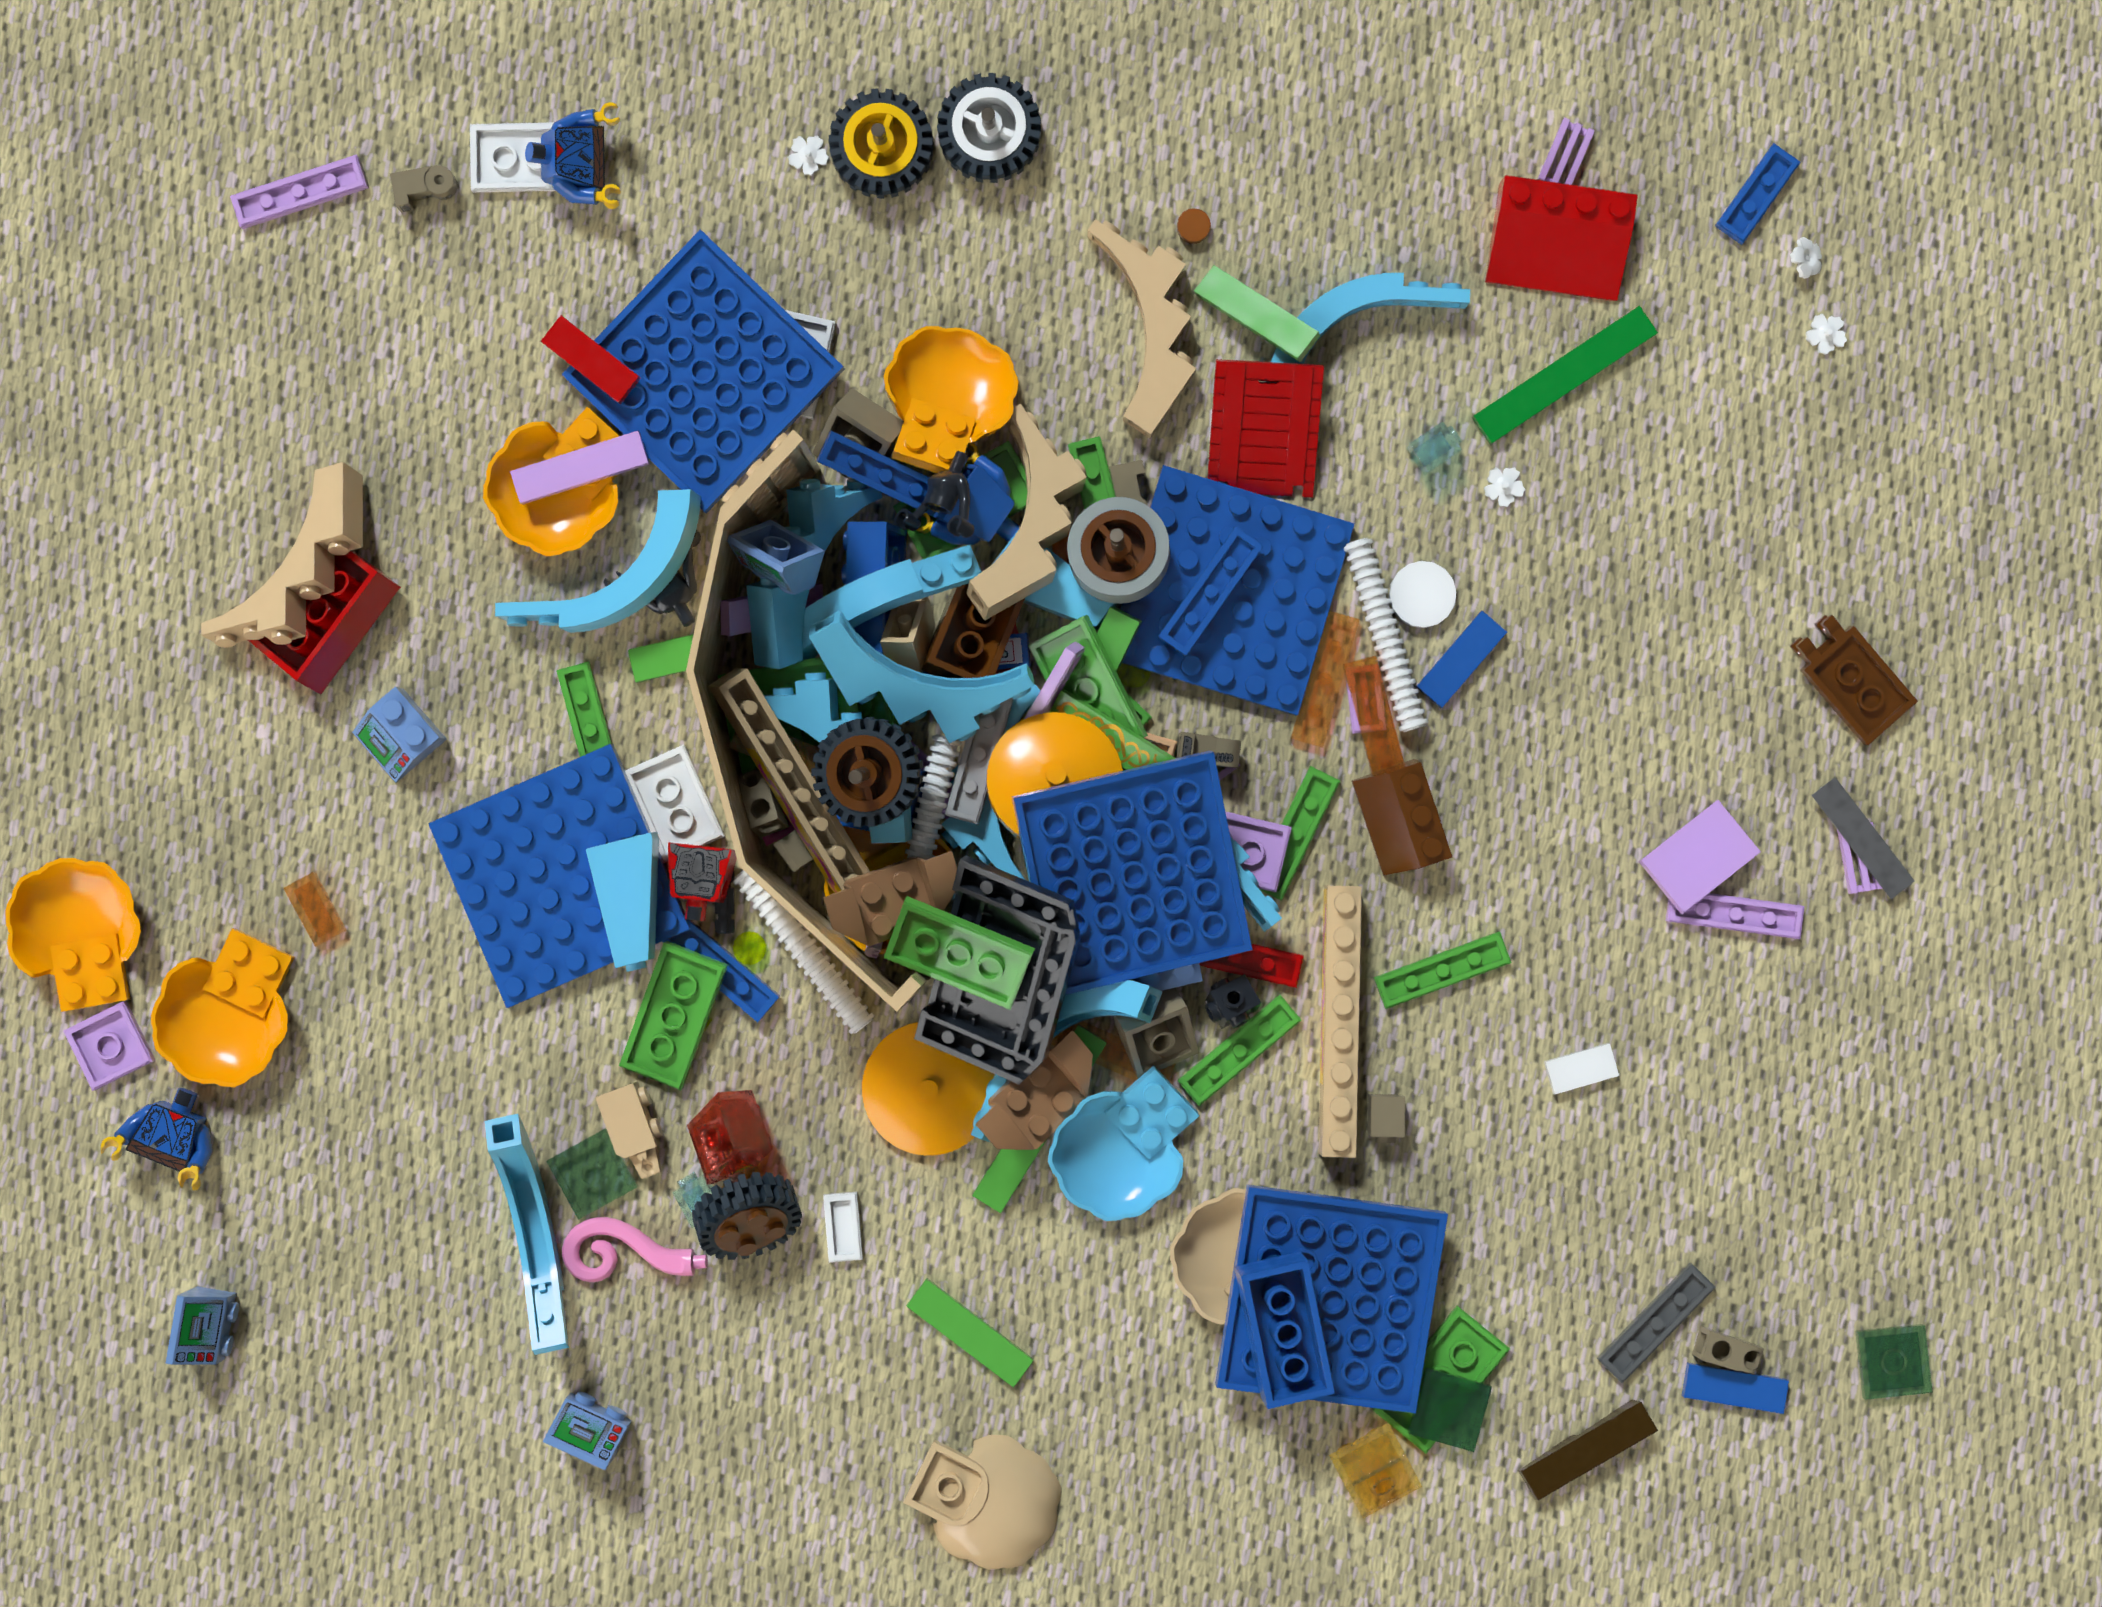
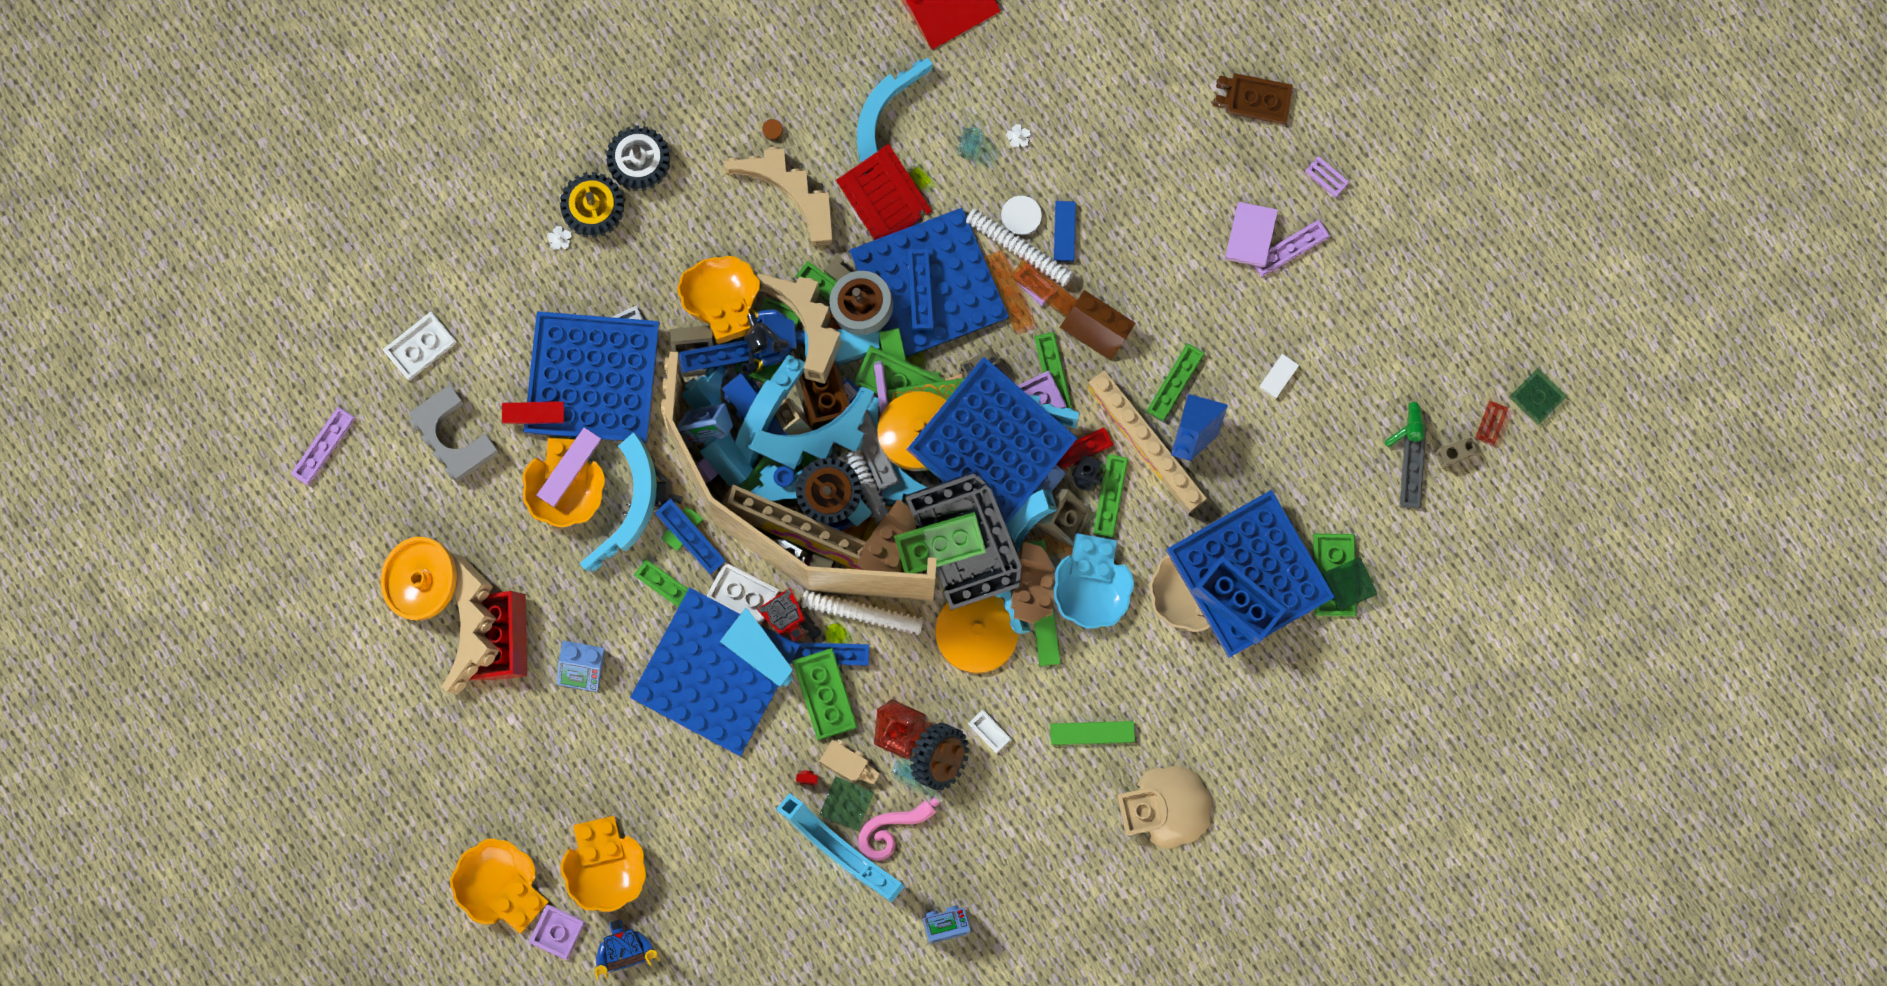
camera: 45 degrees left, 10 degrees down
(279, 461) = (418, 578): none -> light orange dish
(315, 909) = (606, 784): clear orange tile -> none
(422, 184) = (382, 394): dark tan leg -> none
(453, 263) = (458, 461): none -> light grey arch
(566, 1104) = (807, 778): none -> red plate
(574, 157) = (448, 324): torso -> none
(662, 678) = (690, 536): none -> blue plate
(827, 705) = (784, 476): none -> blue tile
(1257, 313) = (836, 145): tile -> none
(1330, 441) = (919, 178): none -> clear neon green tile
(1375, 1470) = (1339, 641): clear yellow slope -> none
(1386, 1117) = (1205, 470): dark tan brick -> none
(1419, 1054) = (1197, 426): none -> blue slope
(1564, 375) = (1004, 63): green tile -> none
(1588, 1449) = (1430, 551): dark brown slope -> none
(1701, 1277) = (1414, 429): none -> green piece
(1735, 1388) = (1475, 468): blue tile -> none
(1799, 1335) = (1485, 439): none -> clear red tile
(1863, 838) = (1320, 166): flat silver sticker -> none

